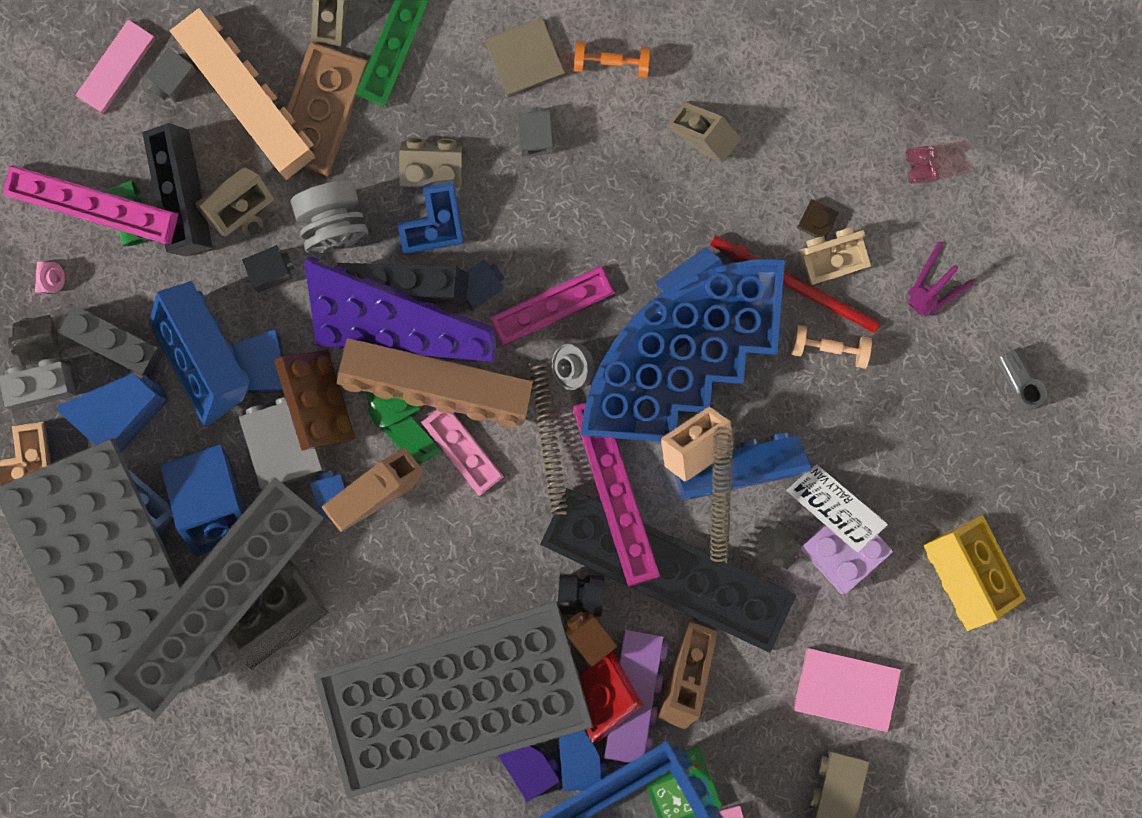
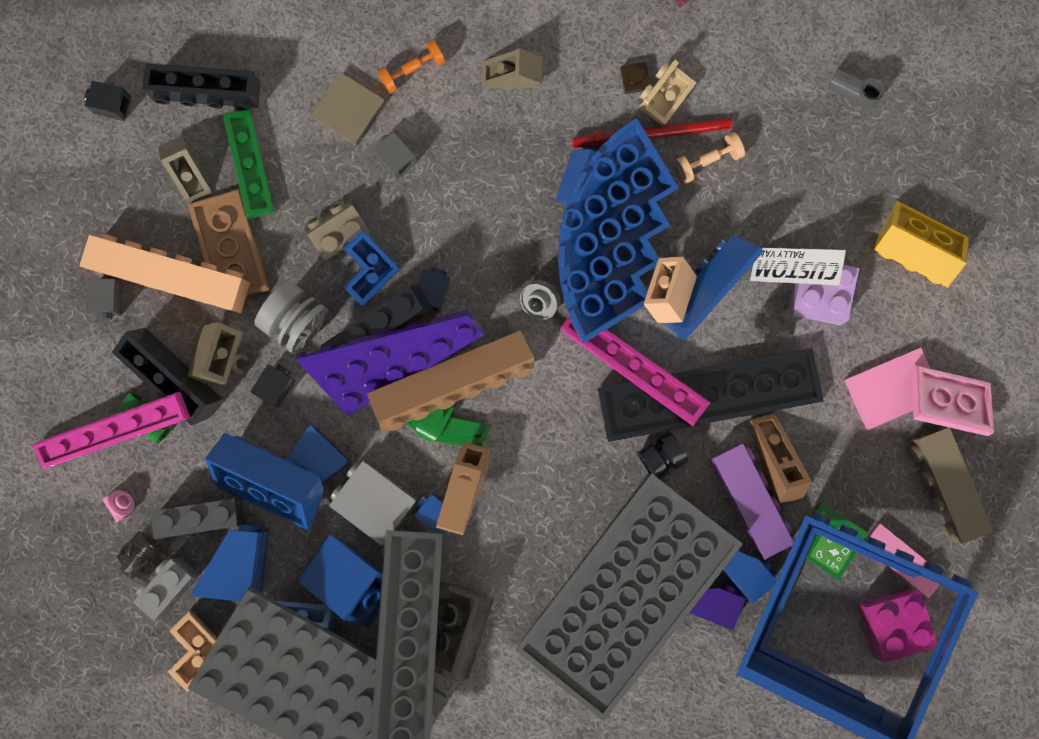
camera: 30 degrees left, 0 degrees up
(115, 66) = (59, 320): bright pink tile -> none
(314, 399) = (374, 454): reddish brown plate -> none
(463, 450) = (505, 415): bright pink tile -> none
(548, 470) = (559, 364): dark tan piece -> none
(552, 306) = (494, 268): dark pink tile -> none
(589, 637) = (694, 481): reddish brown slope -> none
(608, 696) = (735, 512): red tile -> none
(719, 529) = (736, 354): dark tan piece -> none
(891, 740) = (952, 401): none -> bright pink tile
(925, 299) = (750, 79): magenta plant -> none

